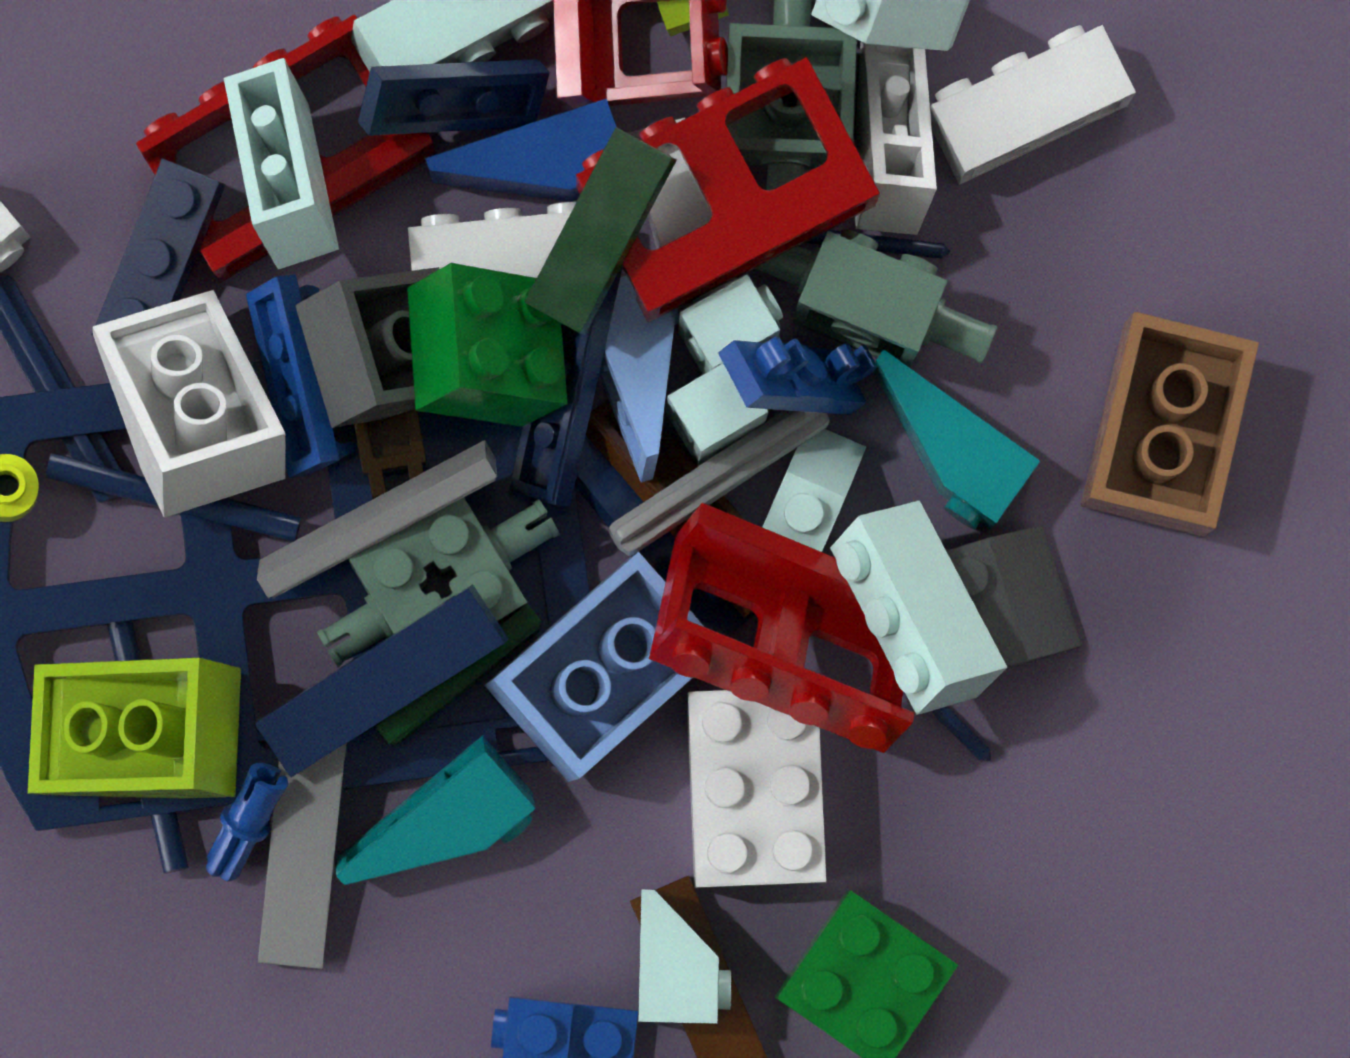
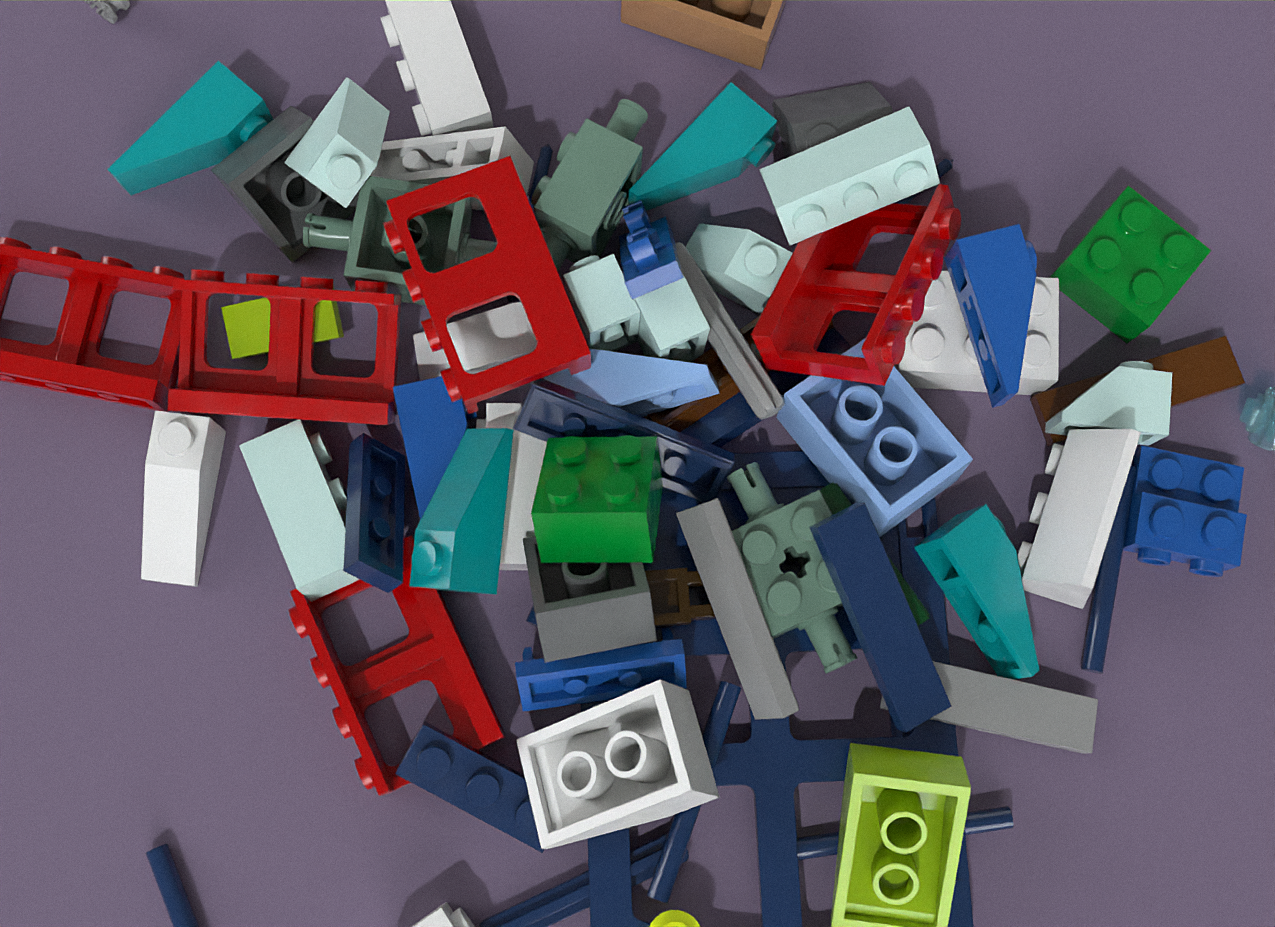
camera: 85 degrees left, 5 degrees down
(245, 821) = (979, 750): blue axle -> none
(280, 164) = (418, 663): light aqua brick -> none
(448, 197) = (464, 523): none -> teal slope
(482, 980) = (1106, 585): none -> dark blue bar
(533, 925) = (1076, 513): none -> white slope
(600, 230) = (517, 382): dark green tile -> none
(783, 792) = (995, 294): none -> blue slope

